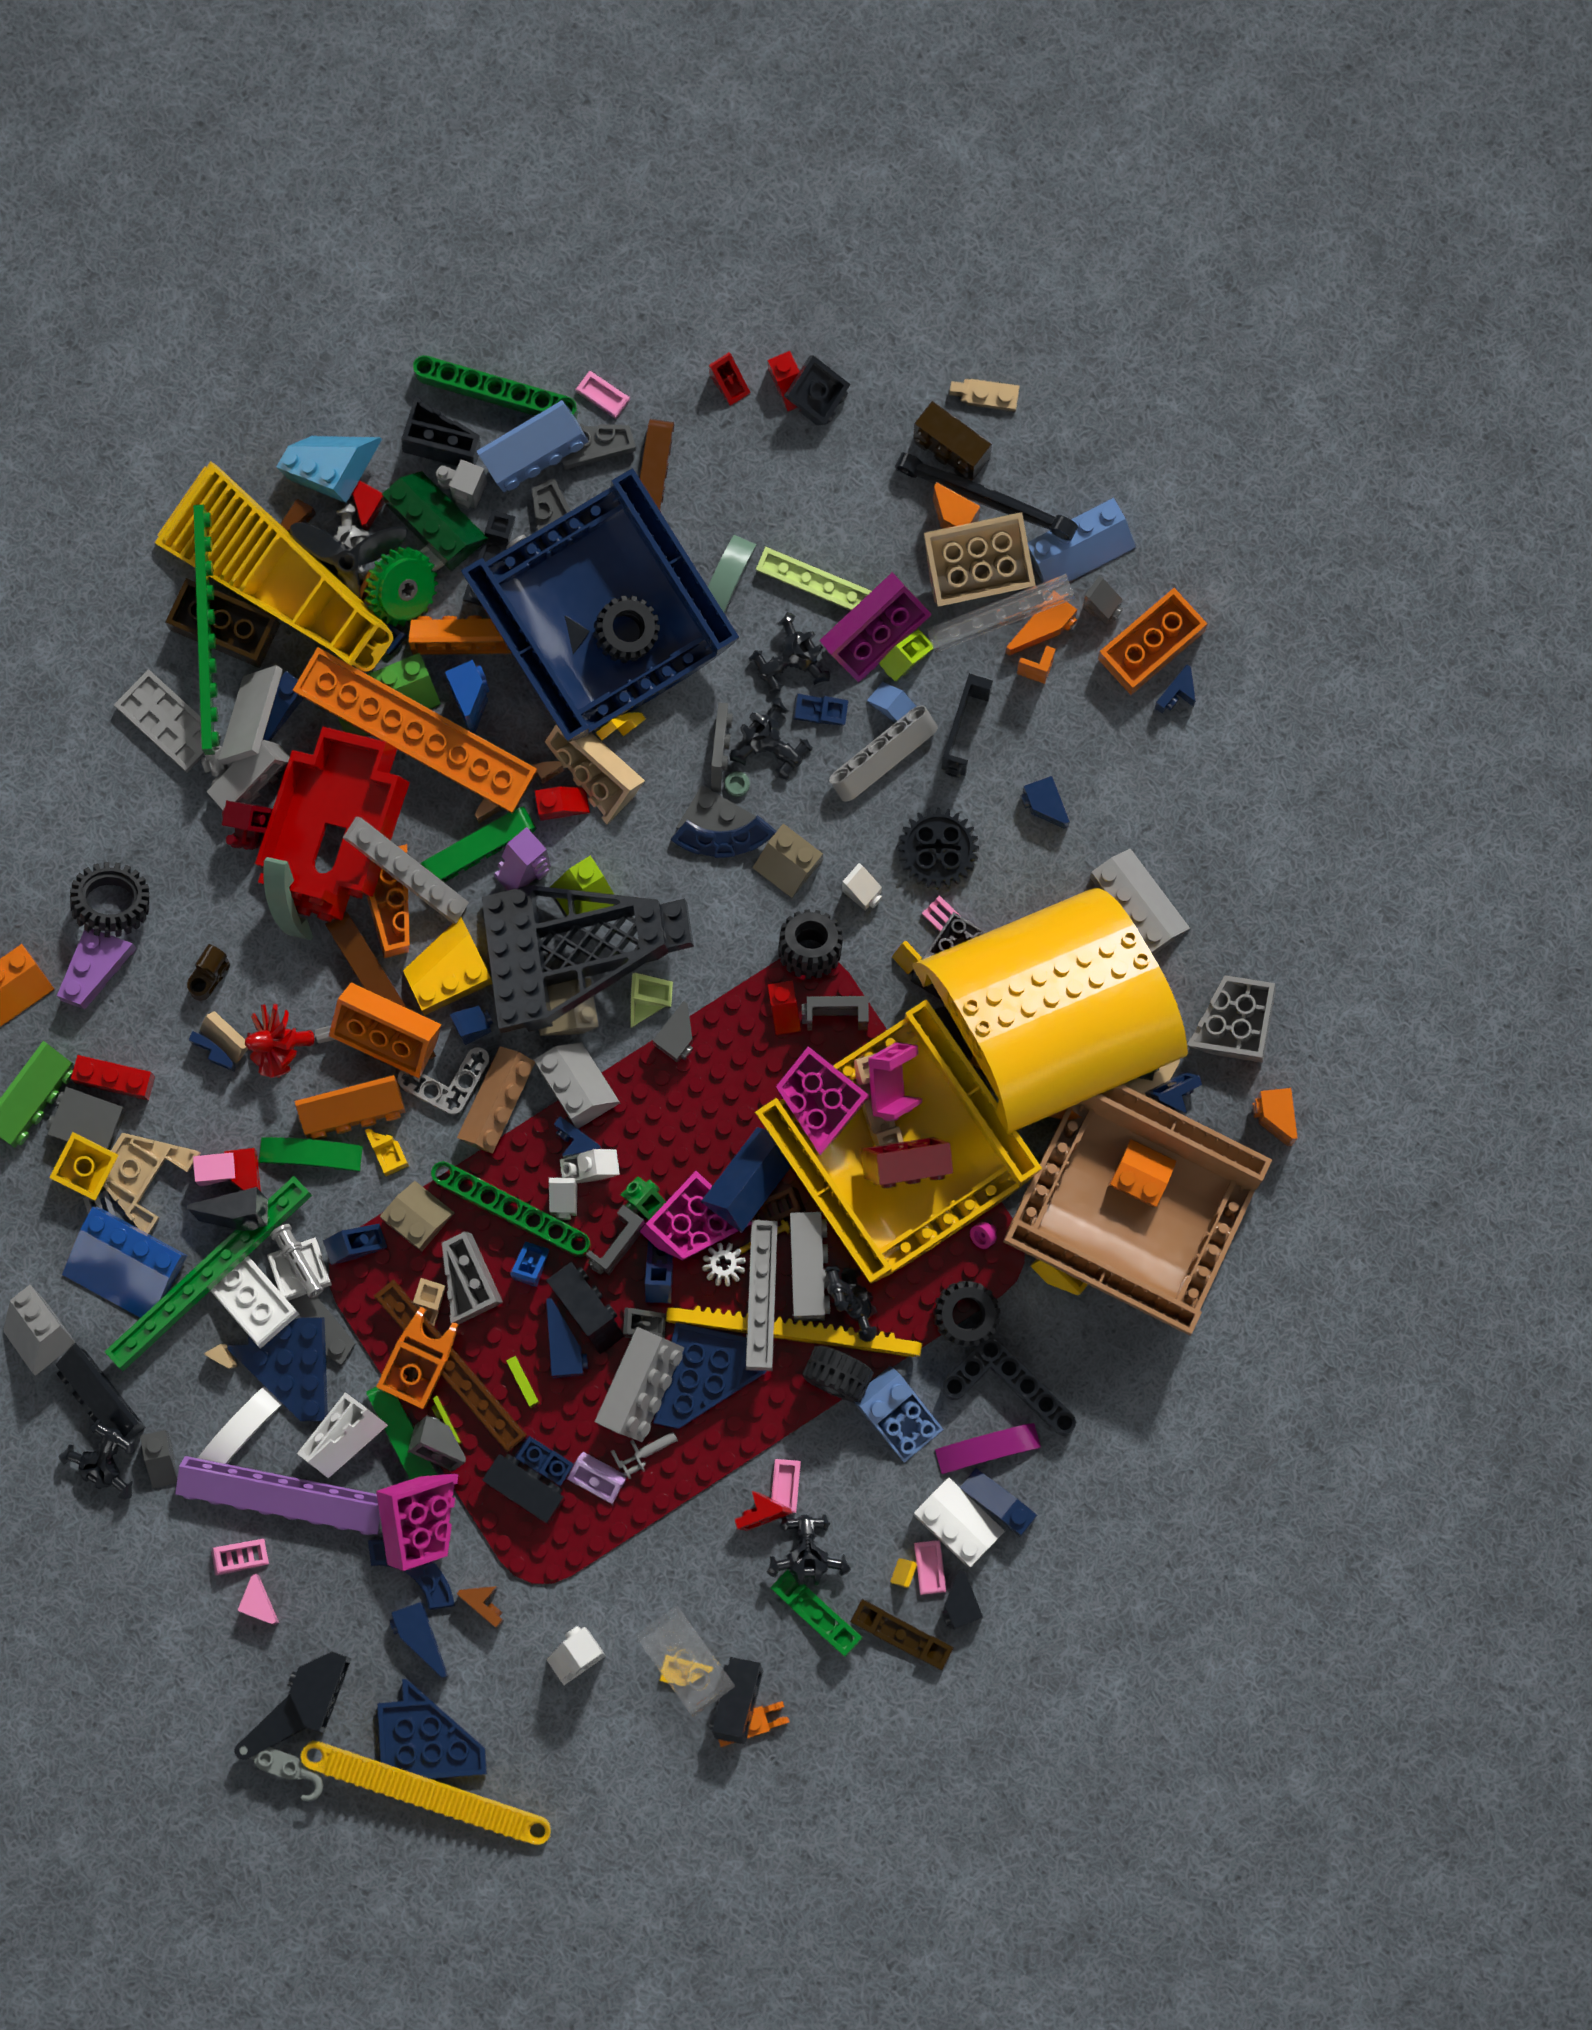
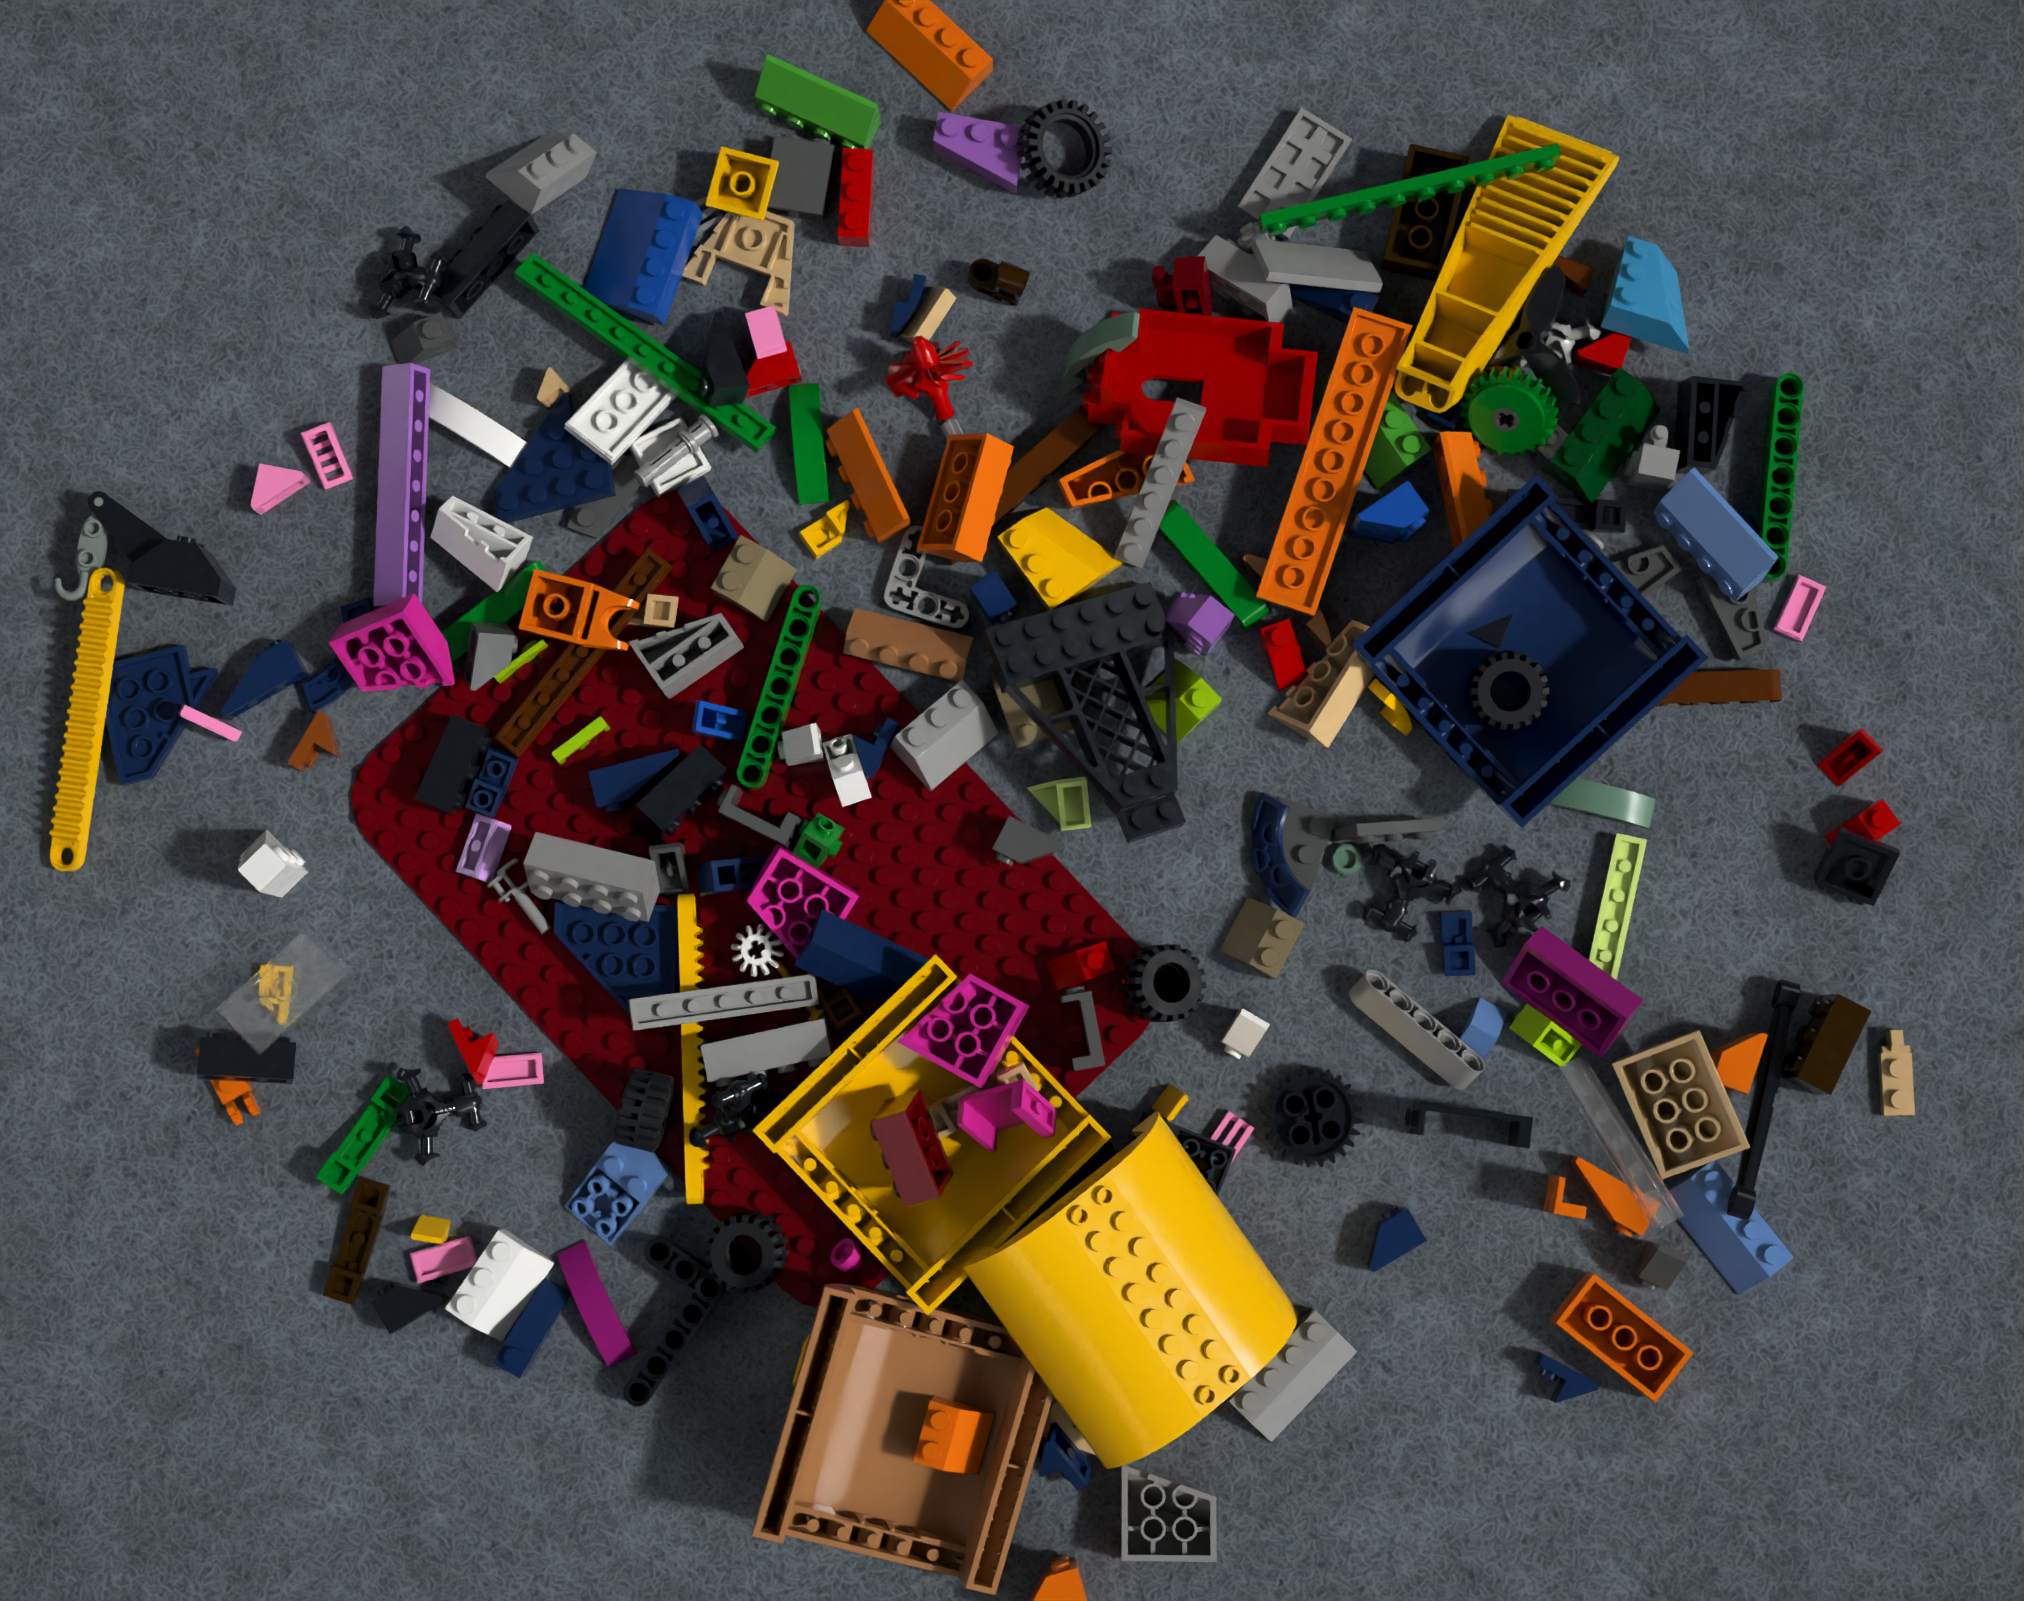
camera: 80 degrees right, 5 degrees up
(449, 1688) = (209, 723): none -> bright pink tile

